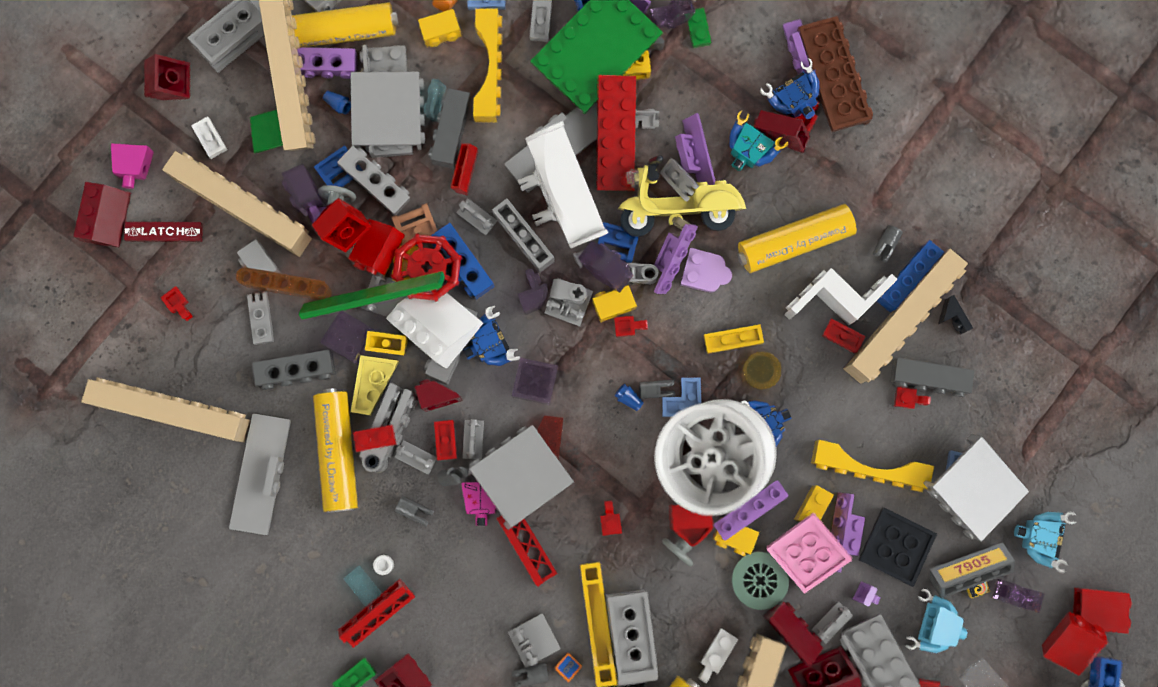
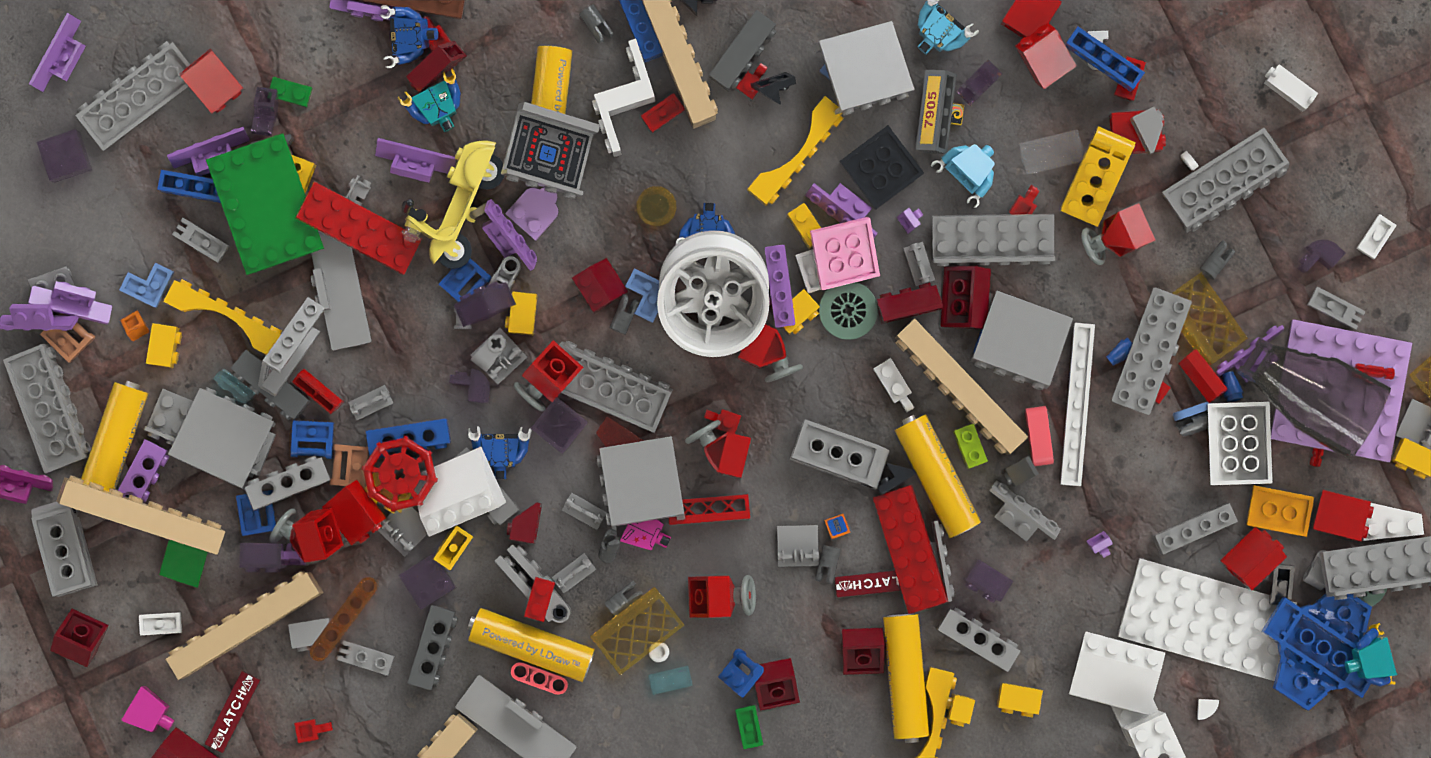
camera: 65 degrees left, 5 degrees up
(305, 465) = (531, 670): none -> coral beam
(337, 102) = (188, 481): blue cone -> none
(371, 382) = (481, 580): light yellow wing -> none
(372, 295) = (401, 539): green tile -> none
(373, 610) = (696, 679): red fence -> none
(391, 645) = (736, 678): none -> blue plate
(400, 521) = (626, 616): none -> clear yellow fence
(428, 182) = (312, 432): none -> blue plate
(445, 440) = (572, 537): red plate -> none
(454, 591) = (717, 596): none -> red piece
(486, 121) = (290, 347): none -> light grey panel
(523, 235) = (413, 367): light grey brick -> none
(562, 186) = (392, 307): white piece -> none
(572, 349) = (548, 375): none -> red piece
(581, 536) = (725, 453): none -> red piece
(589, 406) = (617, 389): none -> light grey bracket
(598, 624) = (811, 479): yellow arch -> none
(626, 326) = (550, 313): red plate -> none
(628, 397) = (618, 345): blue cone -> none
(671, 356) = (599, 285): none -> dark red slope
(679, 179) = (434, 191): light grey hinge -> none
(733, 339) = (613, 218): yellow plate -> none
(764, 253) = (548, 149): none -> panel
(776, 528) = (808, 270): none -> white plate
(915, 416) = (771, 86): none -> black slope

